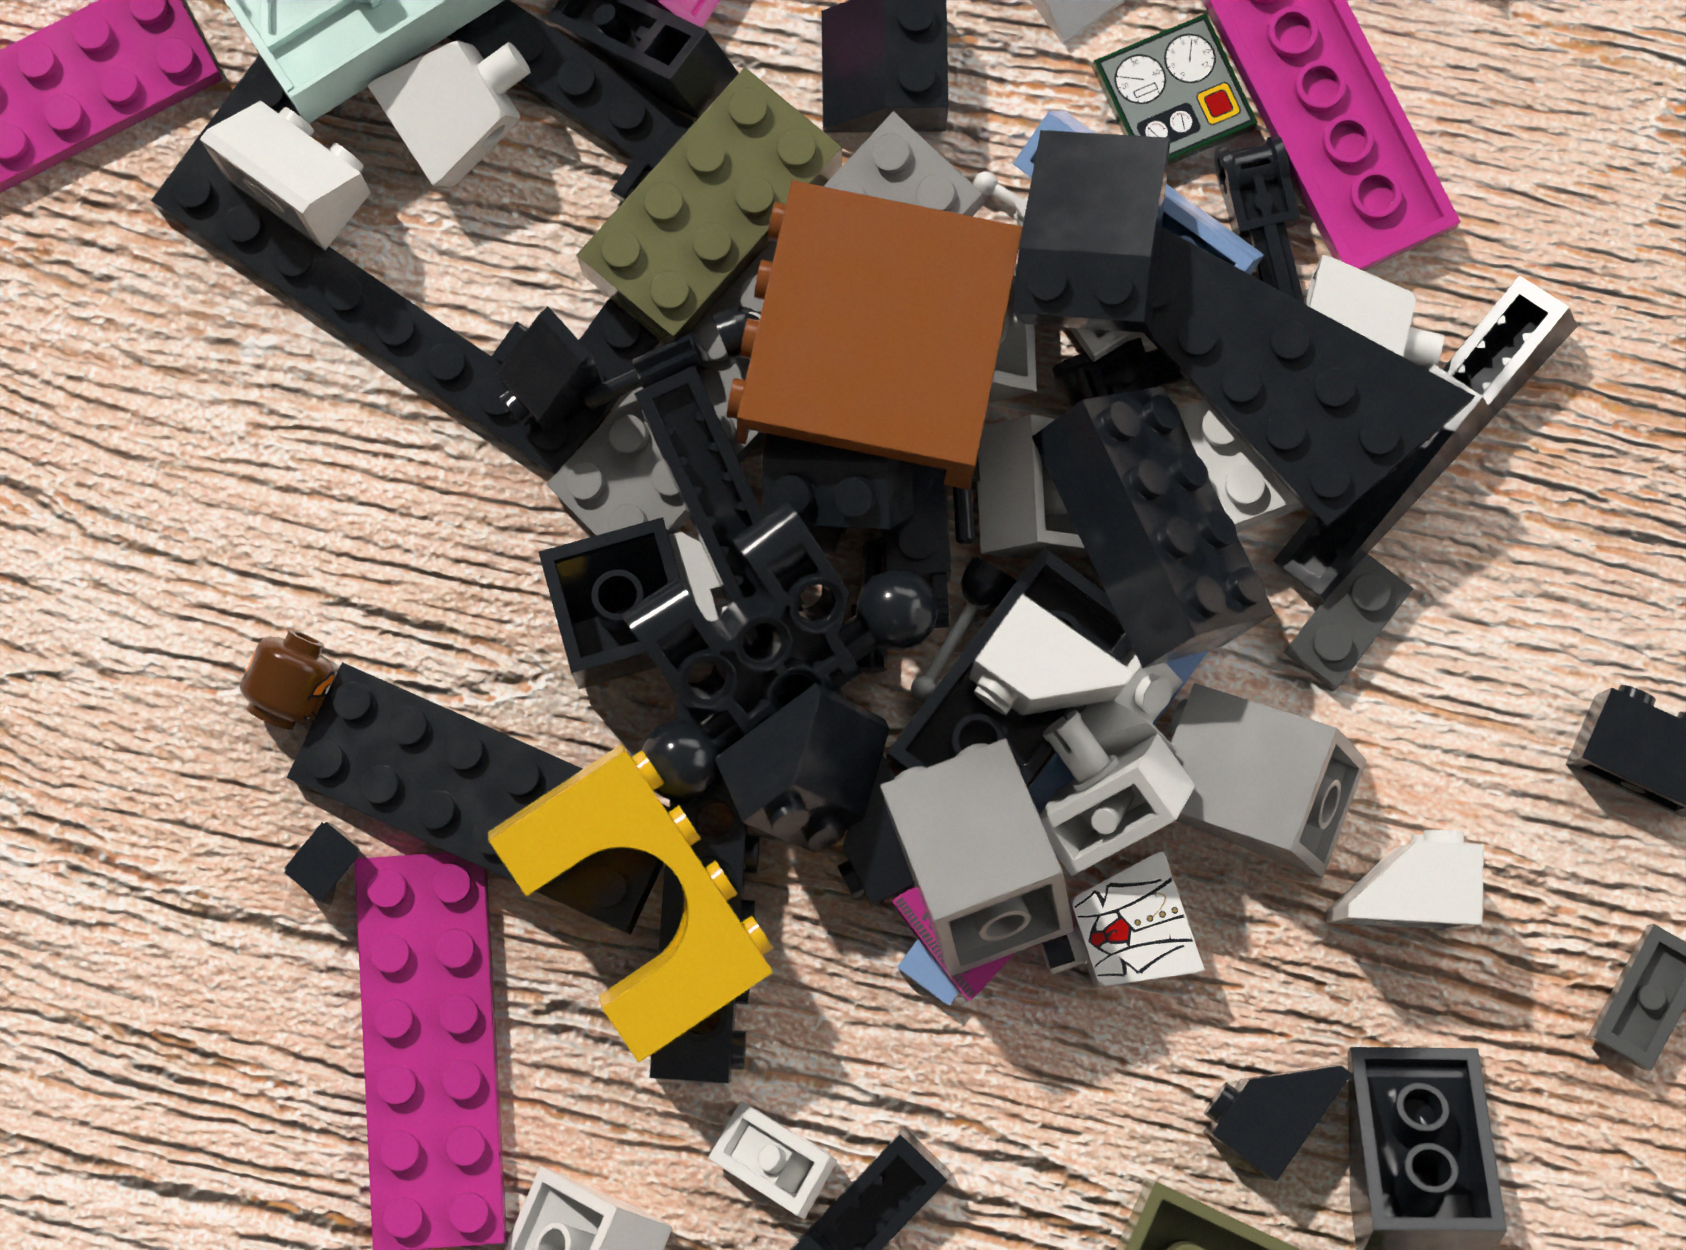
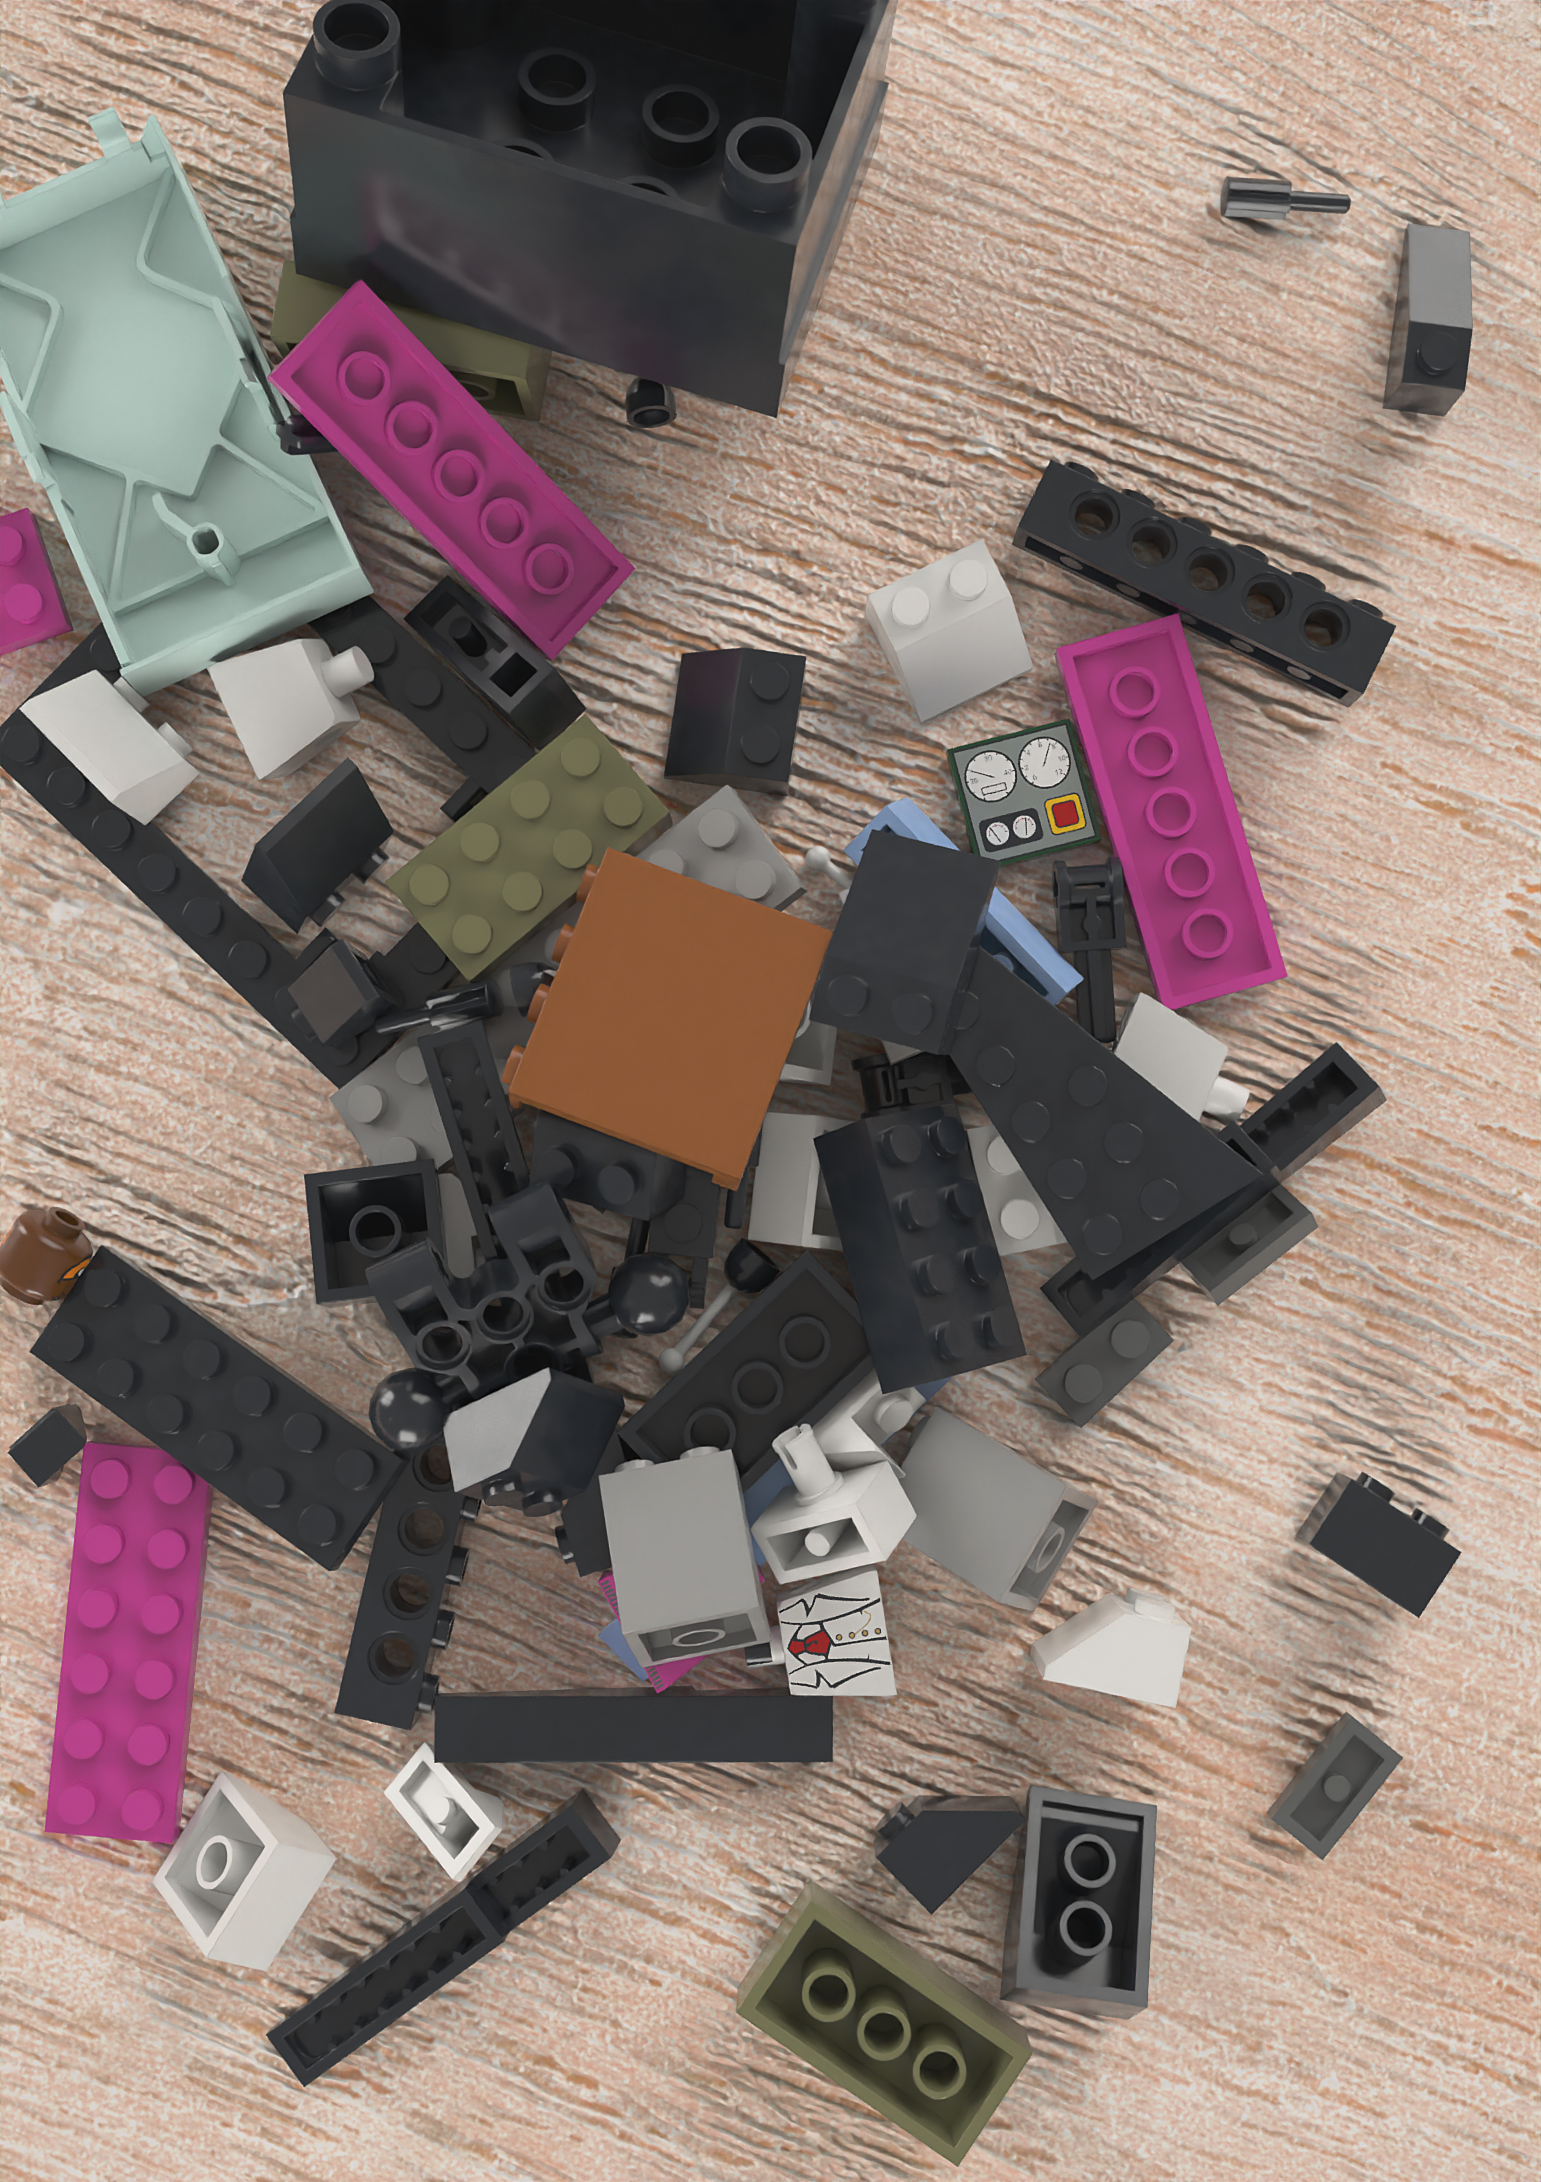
camera: 15 degrees right, 5 degrees up
(504, 240) = (320, 850): none -> black slope
(712, 951) = (338, 1458): yellow arch -> none
(947, 1047) = (633, 1726): none -> black slope
(1043, 665) = (778, 1385): white slope -> none
(1469, 483) = (1249, 1244): none -> dark grey plate

